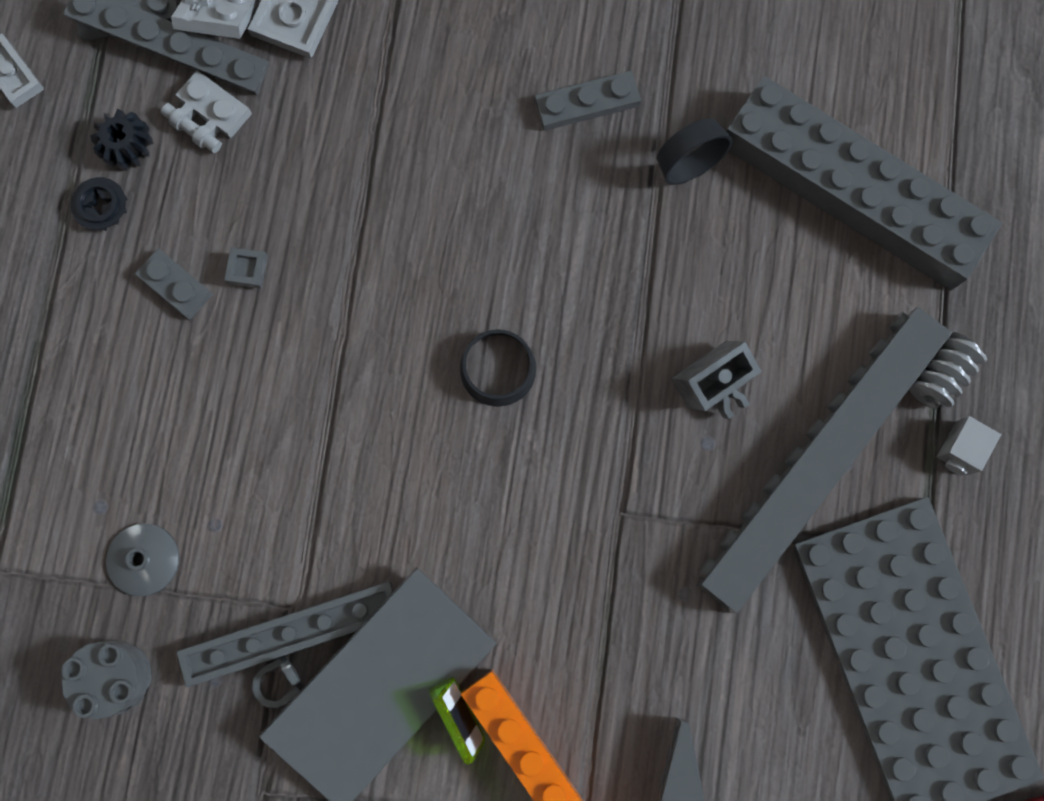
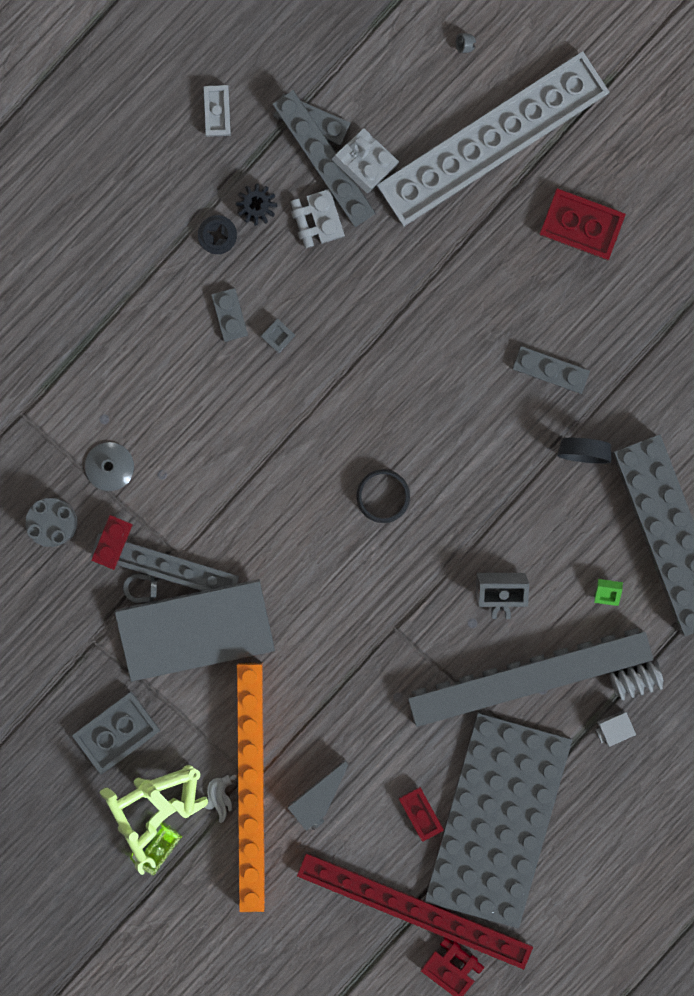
camera: 35 degrees right, 10 degrees up
(200, 650) = (112, 542): none -> dark red plate
(458, 719) = (226, 676): slope -> none
(820, 719) = (421, 814): none -> dark red plate
(837, 295) = (608, 592): none -> bright green plate

